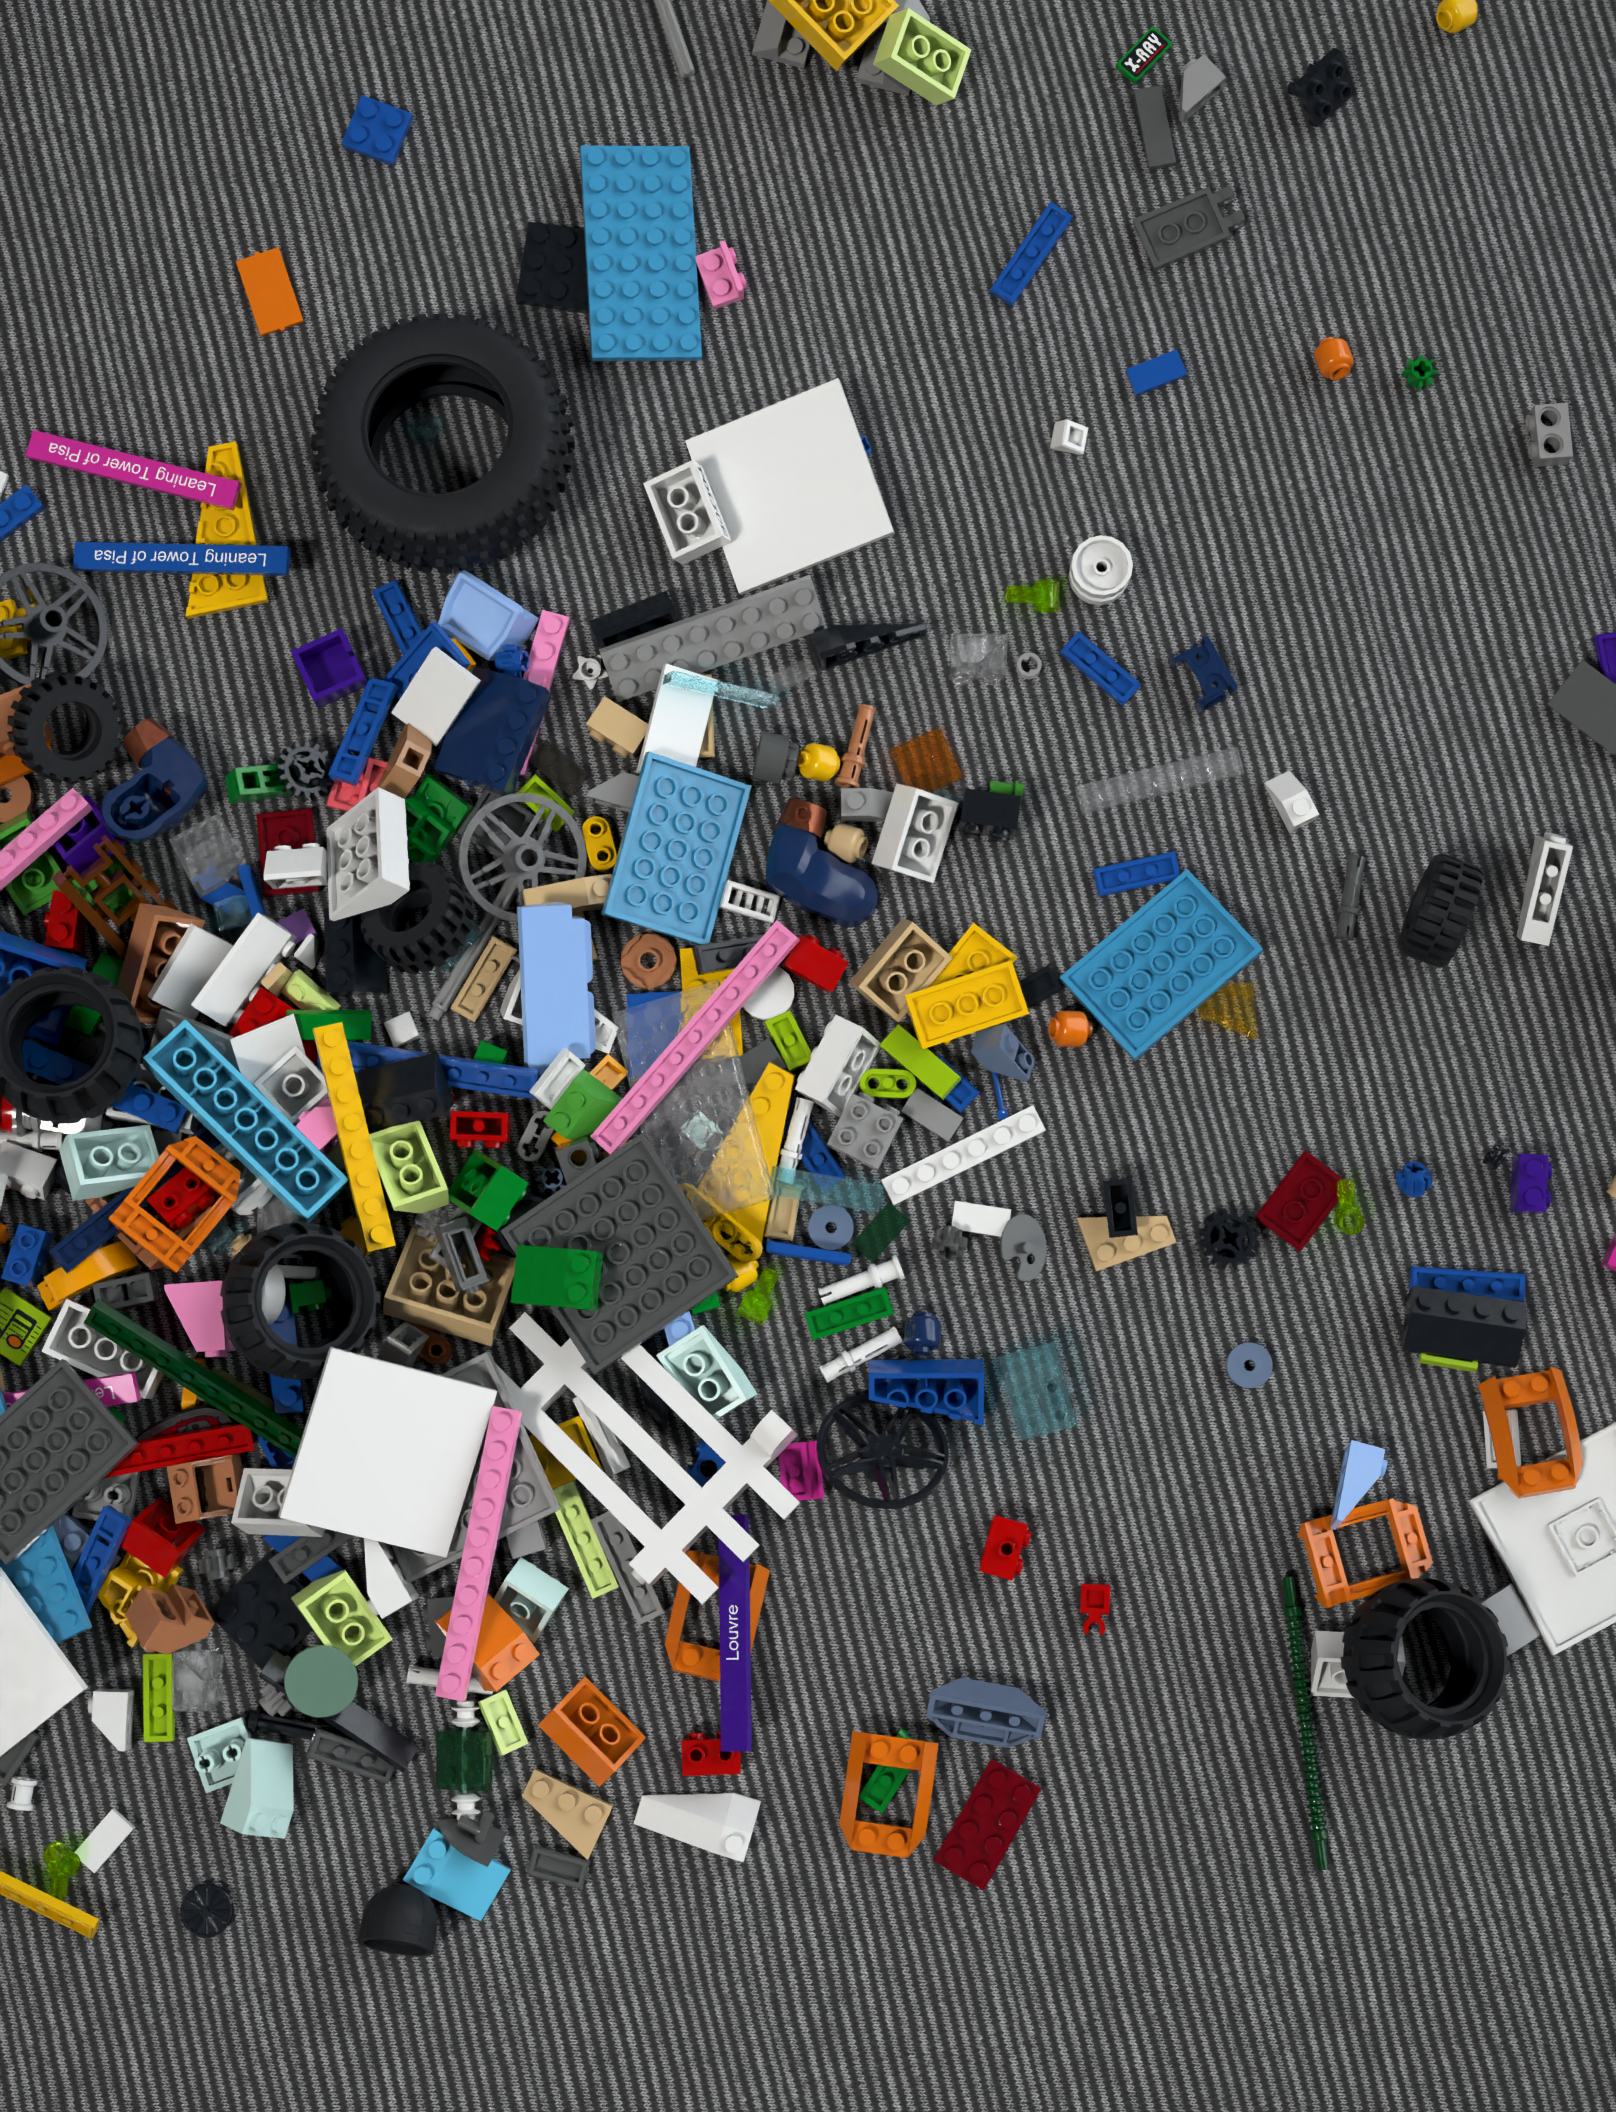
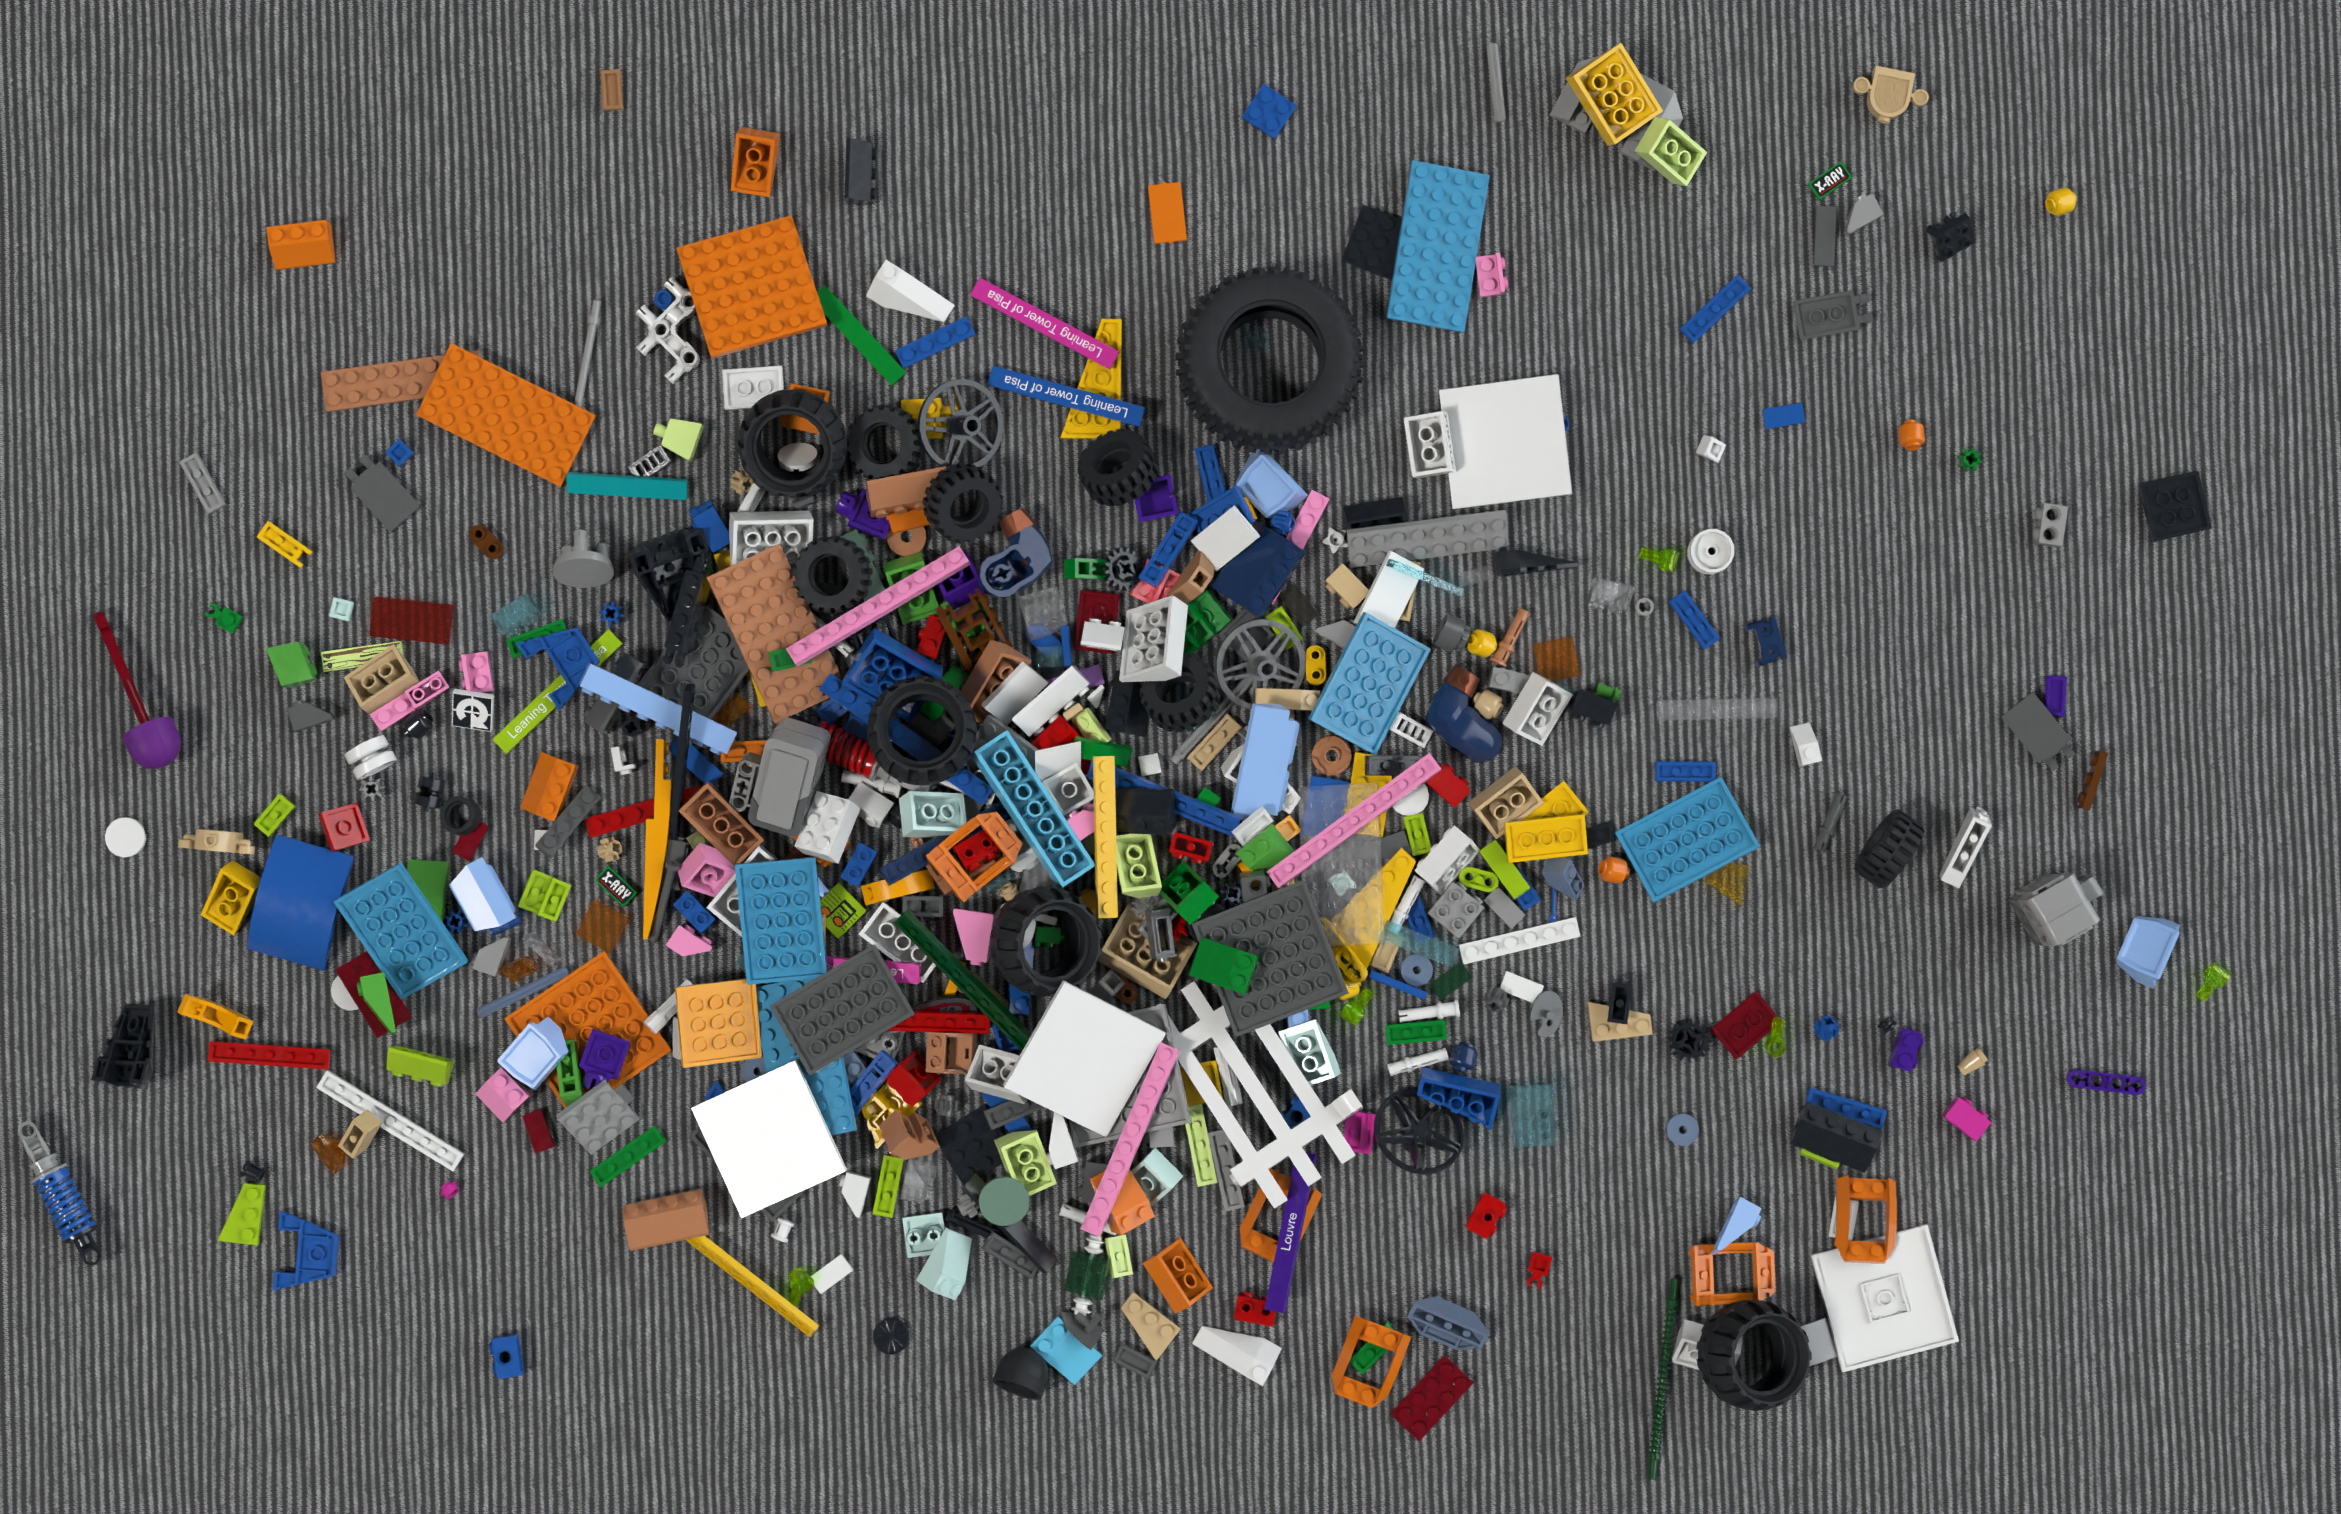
camera: 10 degrees right, 5 degrees up
(267, 634) = (1127, 482): none -> black tyre

